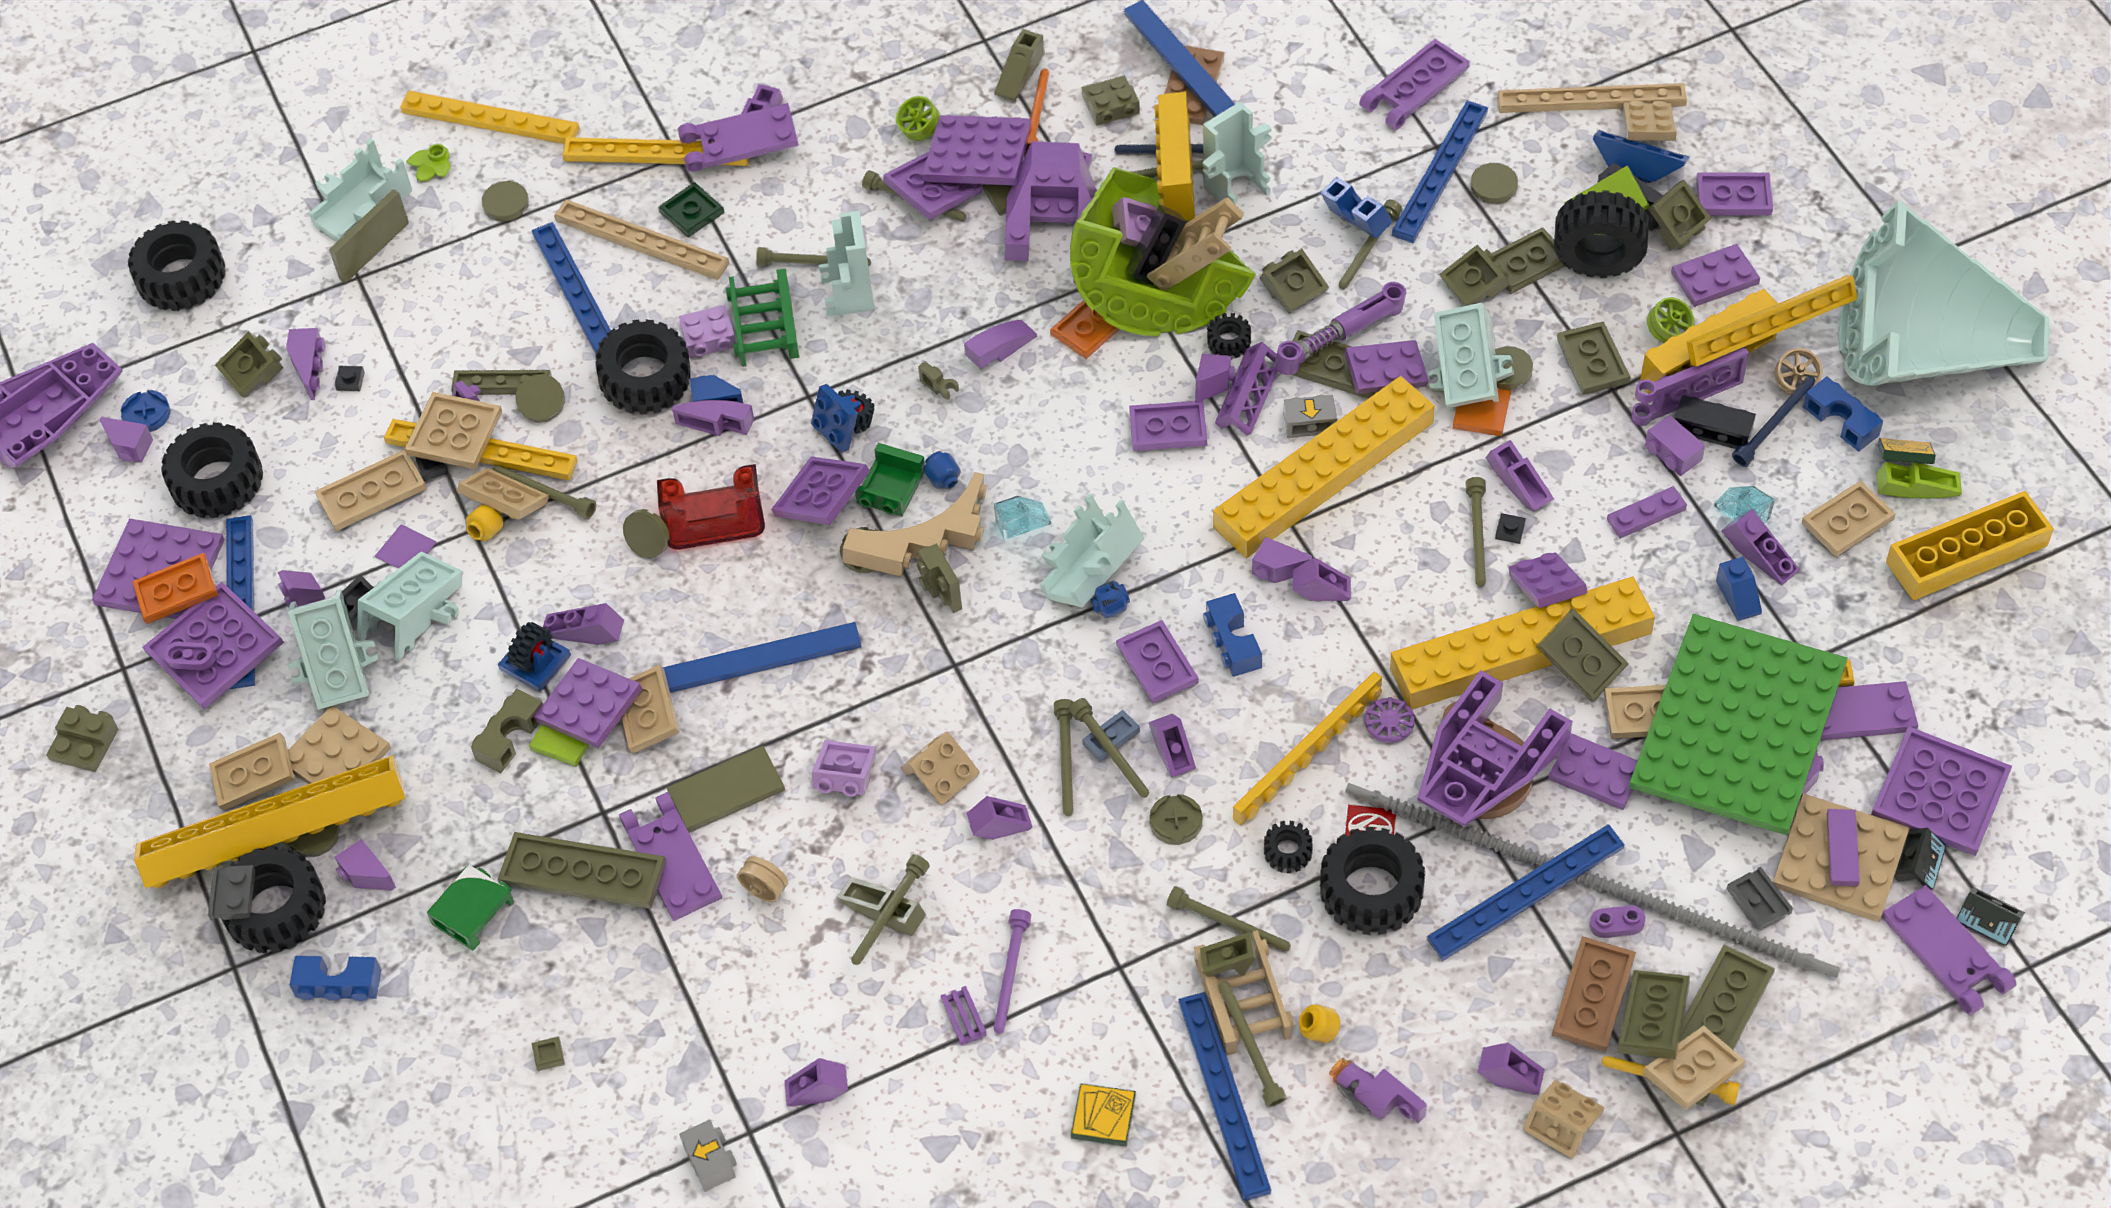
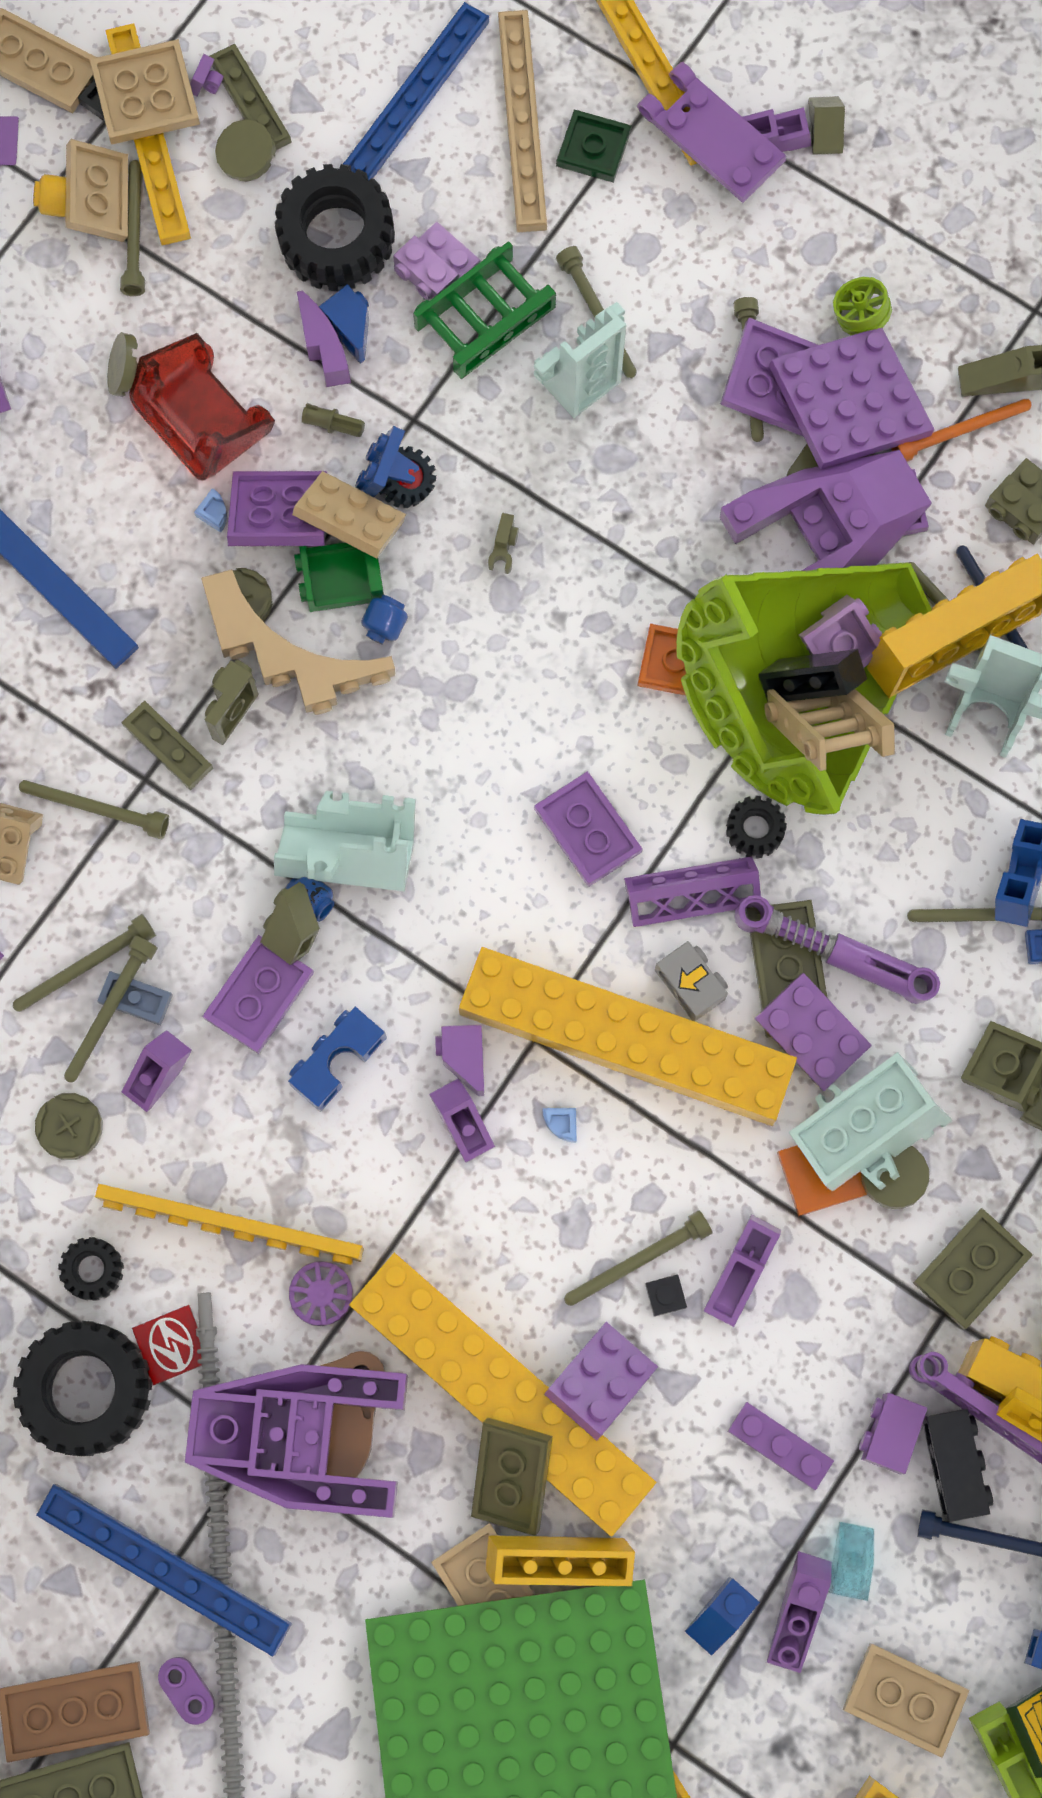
camera: 55 degrees right, 20 degrees up
(776, 437) = (332, 420): none -> olive axle
(779, 77) = (826, 124): none -> olive slope
(788, 537) = (212, 510): none -> light blue tile
(857, 447) = (349, 514): none -> tan plate
(941, 636) = (167, 745): none -> olive plate
(993, 669) = (153, 823): none -> olive piece
(998, 342) = (597, 579): medium lavender slope -> none
(1020, 516) = (371, 738): clear light blue slope -> none
(1126, 612) = (291, 925): none -> olive slope
(1213, 376) = (680, 841): medium lavender slope -> none
(1293, 280) = (878, 857): olive plate -> none
(1358, 533) = (561, 1122): none -> light blue tile
(1594, 771) = (376, 1566): medium lavender plate -> none
(1653, 652) = (559, 1561): none -> yellow brick

